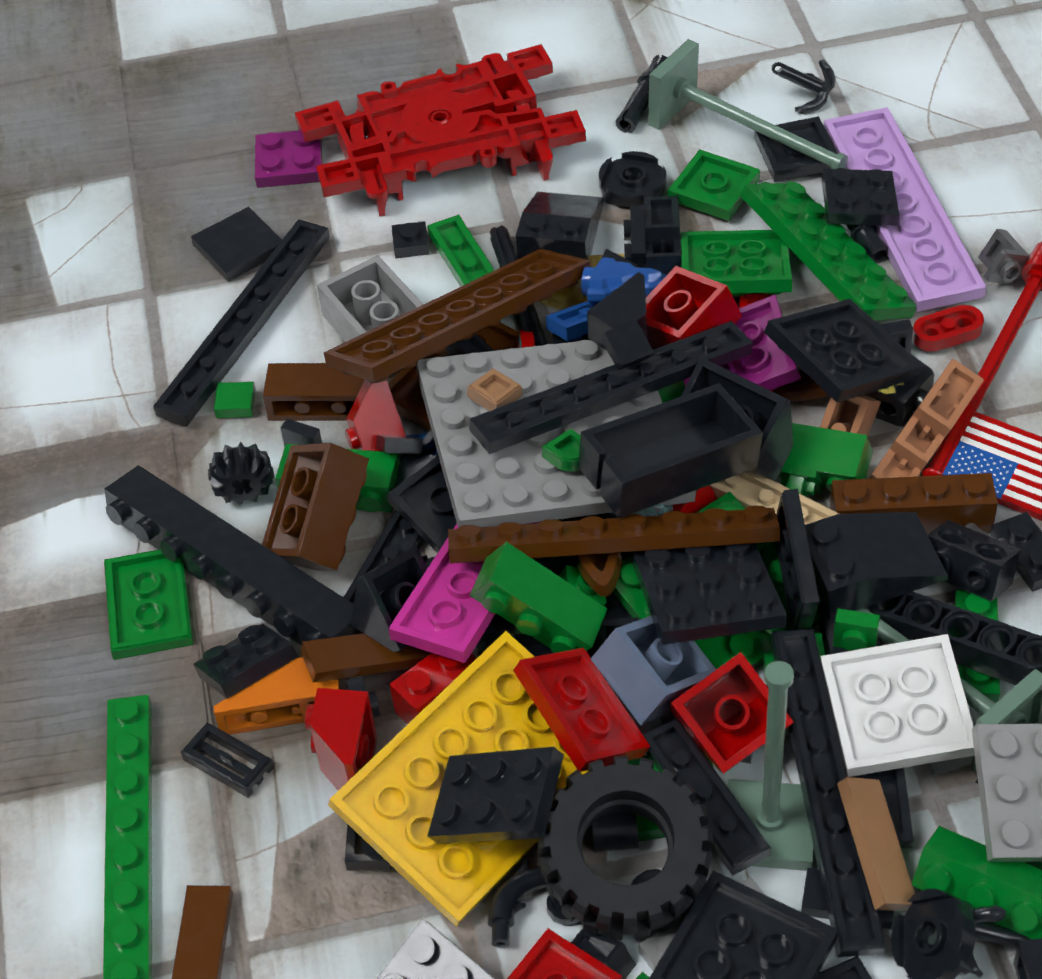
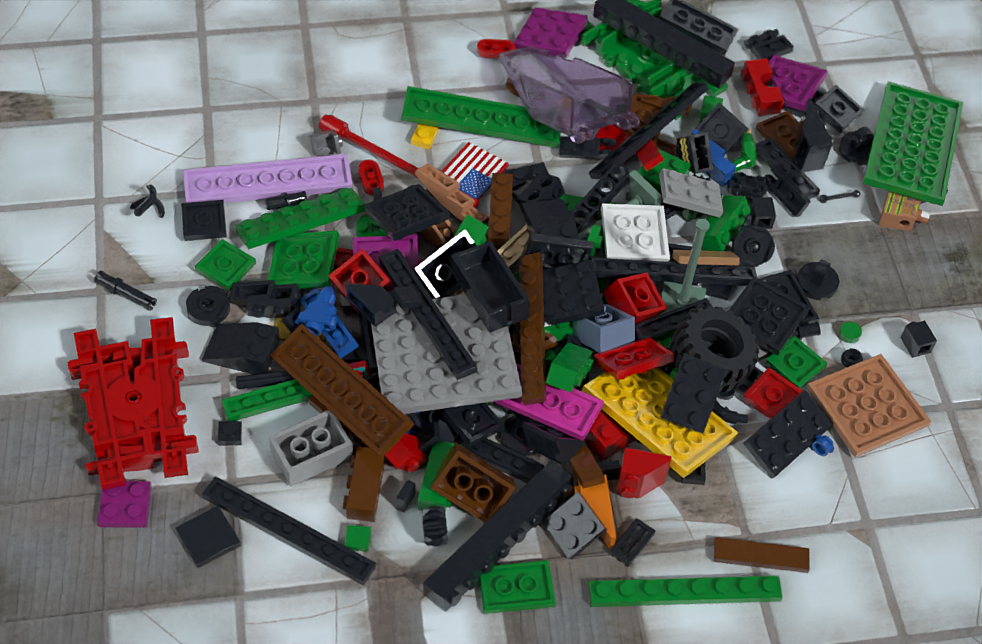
camera: 95 degrees left, 5 degrees up
(494, 390) = (423, 368): medium nougat tile -> none
(563, 451) = (475, 336): green tile -> none
(675, 85) = (140, 268): sand green tile -> none
(860, 197) = (267, 192): black plate -> none

